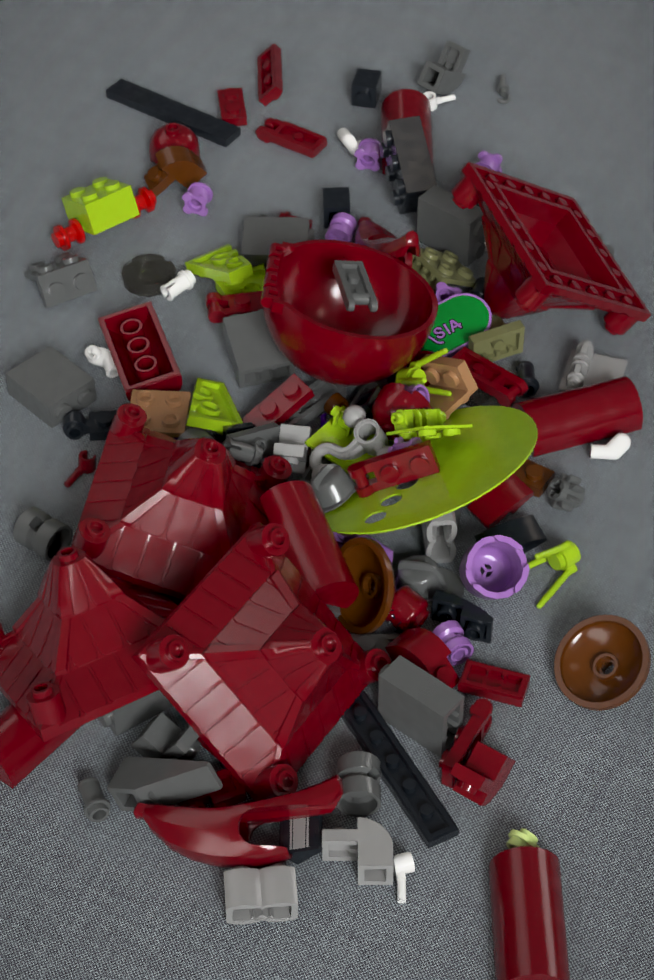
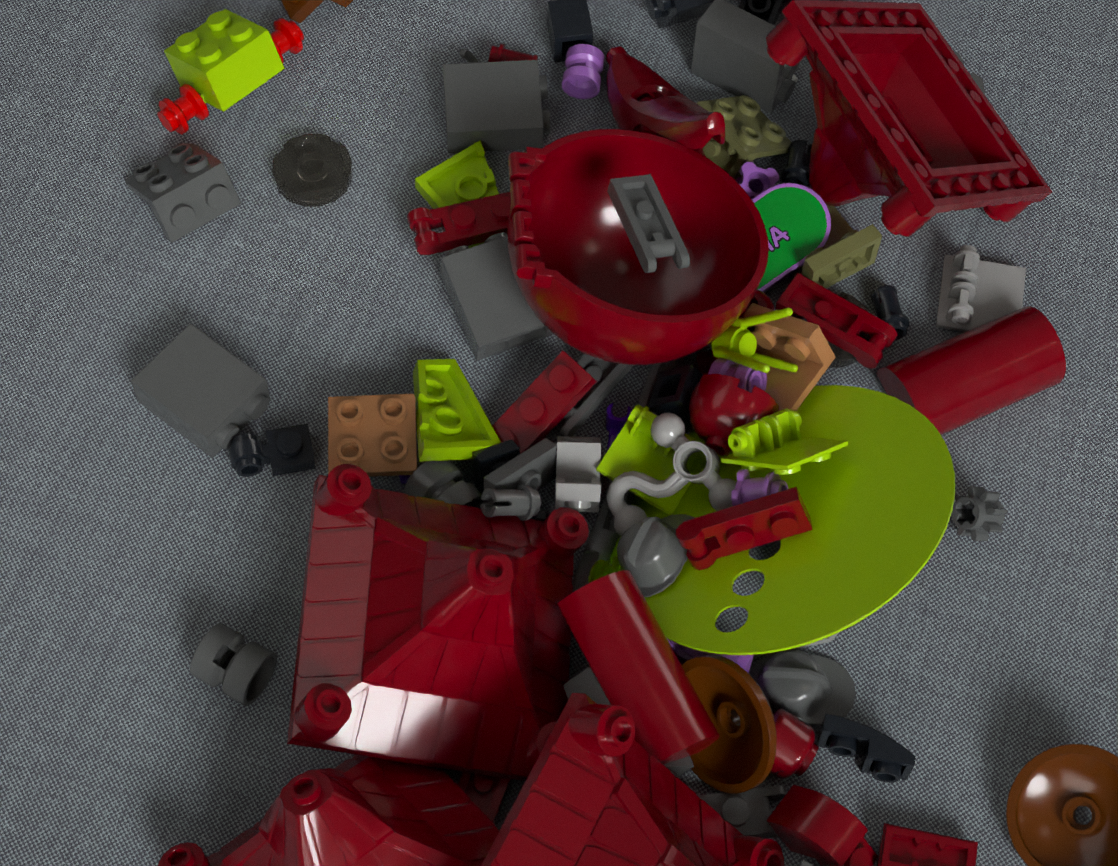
camera: 10 degrees left, 15 degrees up
(84, 466) = (271, 529): dark red hand -> none
(101, 357) = (271, 329): white arm -> none
(140, 350) = (327, 322): dark red brick -> none
(177, 285) = (367, 179): white pin -> none
(197, 198) = (363, 28): medium lavender brick -> none
(221, 265) = (421, 152): lime wing -> none
(335, 399) = (626, 387): reddish brown hinge -> none
(453, 636) = (857, 794): medium lavender wheel -> none
(506, 566) = (905, 674): medium lavender cylinder -> none
(522, 530) = (920, 600): black slope -> none
(562, 558) = (985, 627): lime plant -> none
(613, 449) = (1029, 426): white arm -> none

